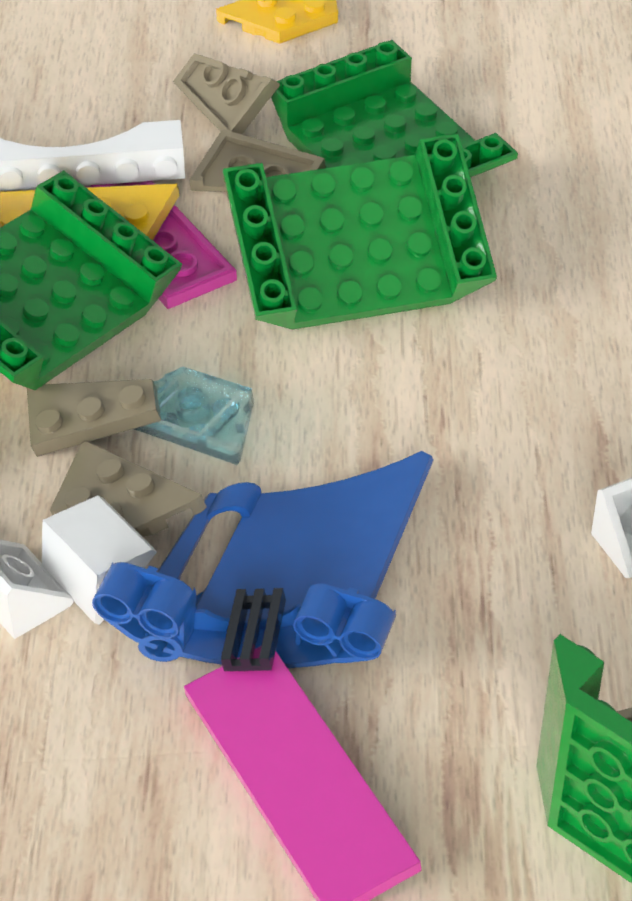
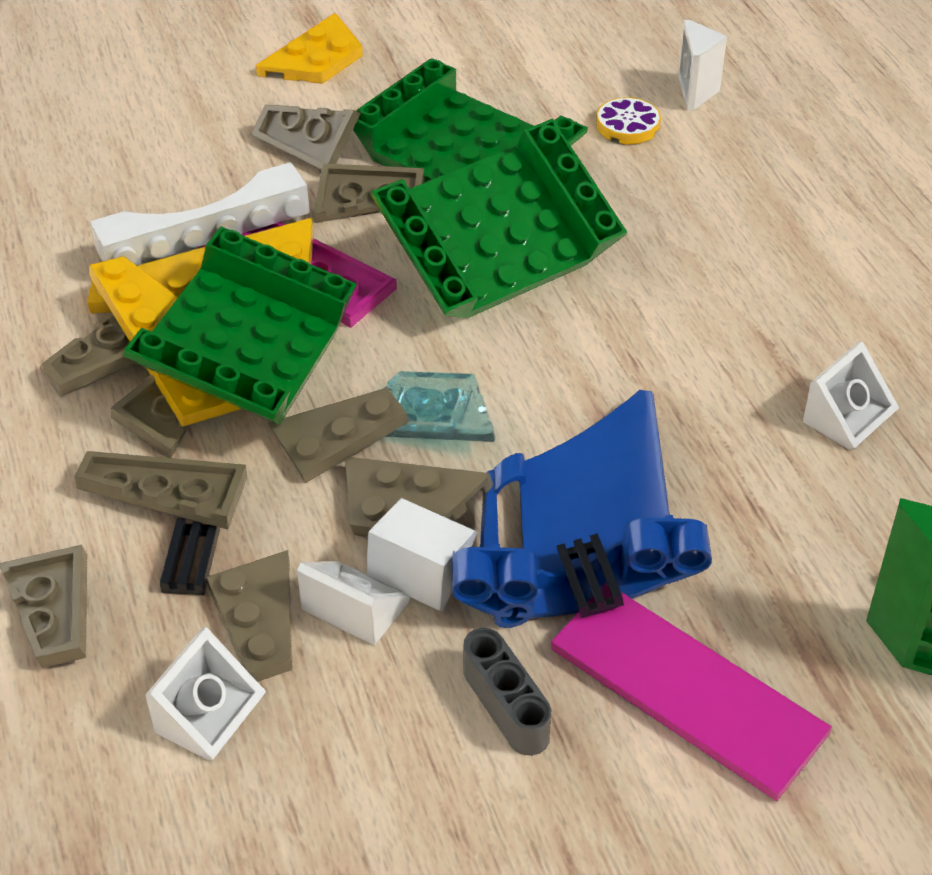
camera: 20 degrees left, 0 degrees up
(113, 741) = (489, 670): none -> dark grey beam
(583, 155) = (628, 120): none -> tile

